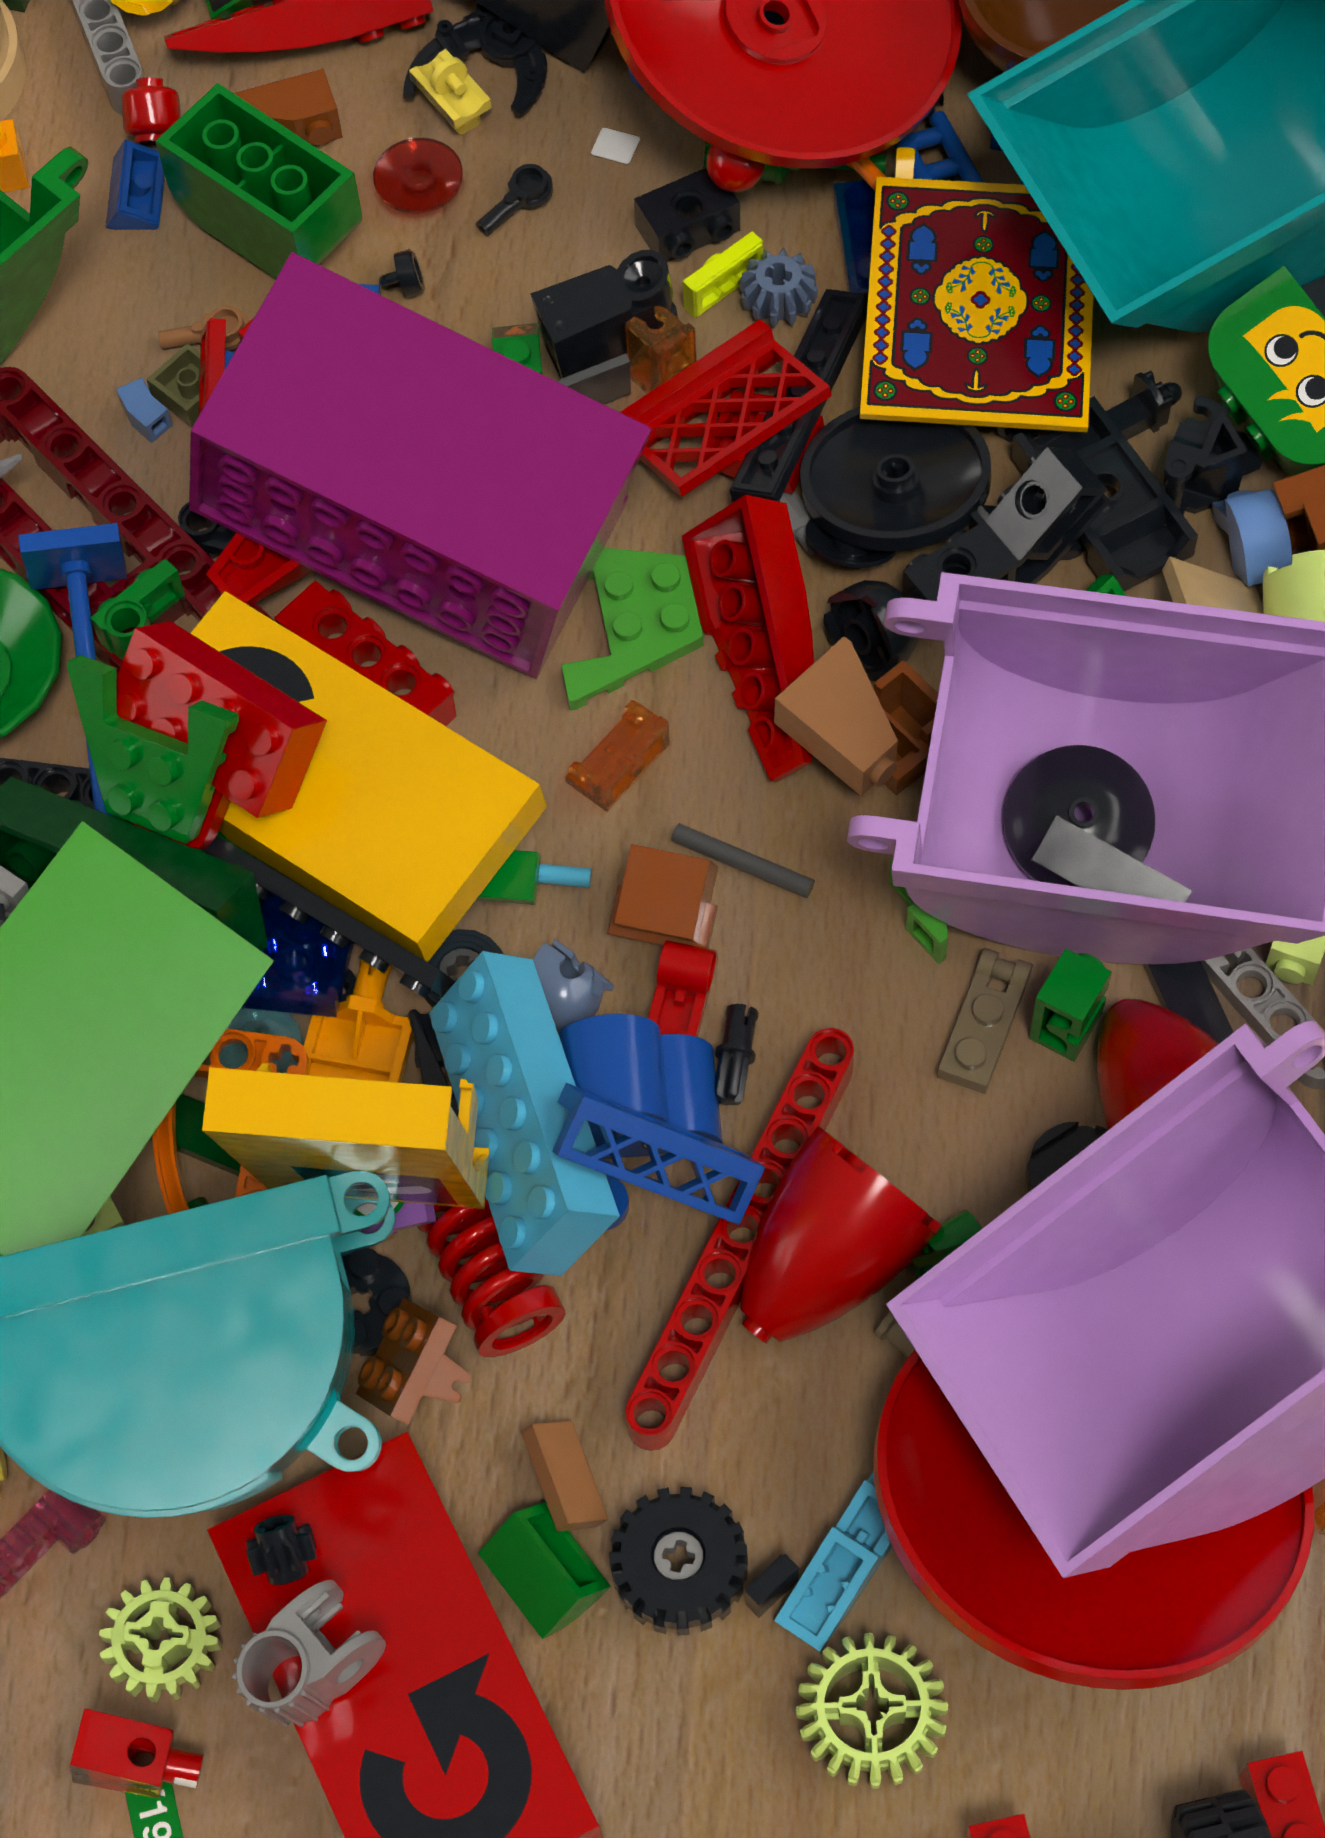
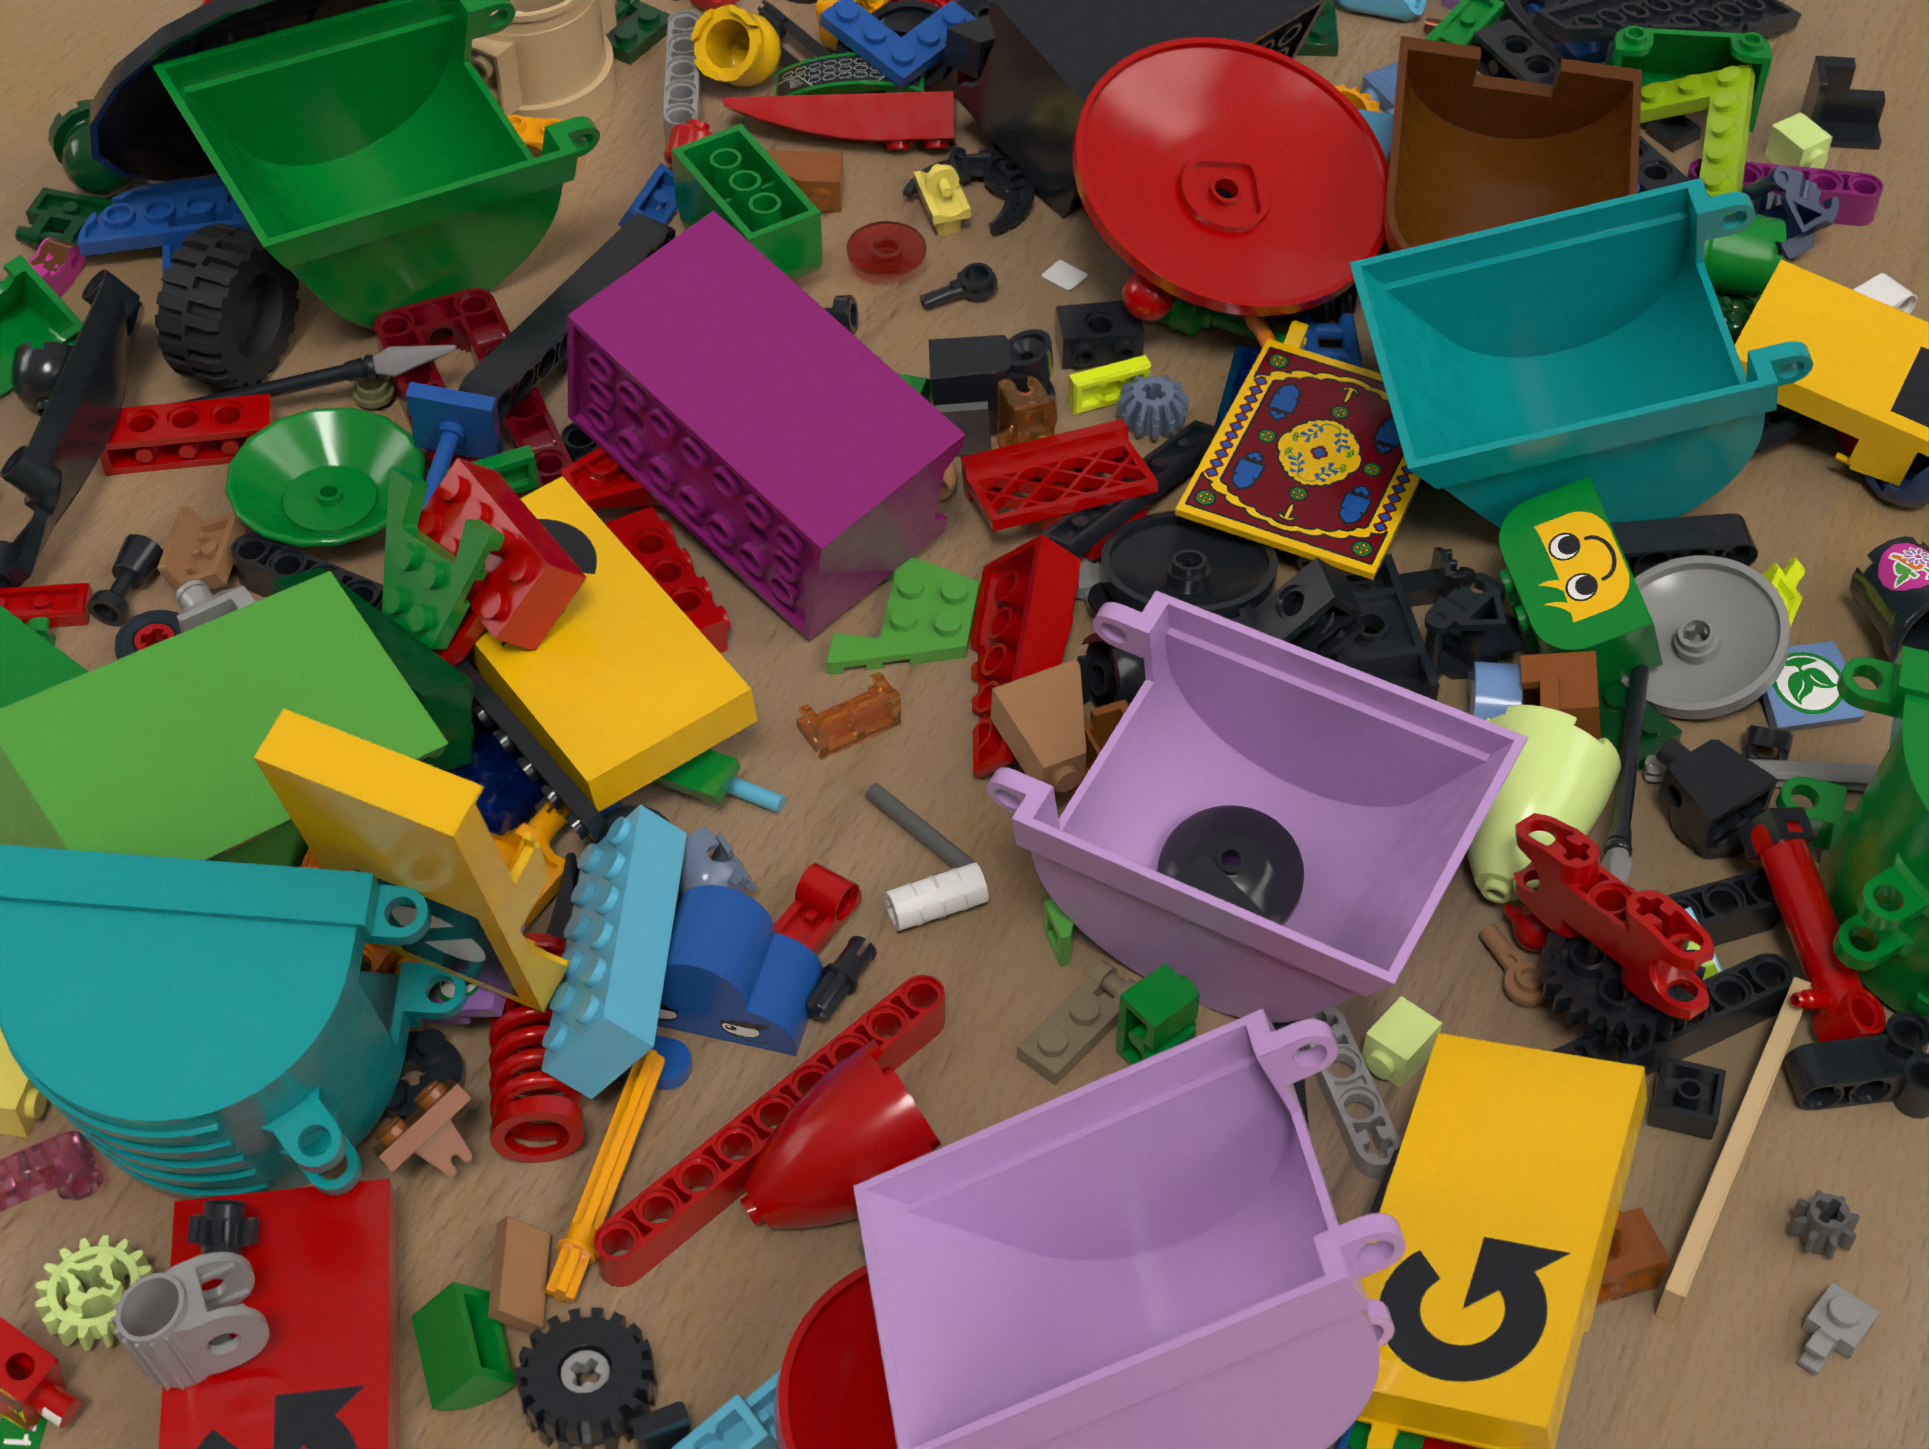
camera: 15 degrees right, 15 degrees down
(120, 374) = (541, 338): none -> black beam
(602, 1364) = (603, 1181): none -> light orange axle
(662, 1135) = (724, 996): blue fence -> none
(665, 898) = (834, 828): dark orange plate -> none
(792, 933) = (936, 896): none -> white axle

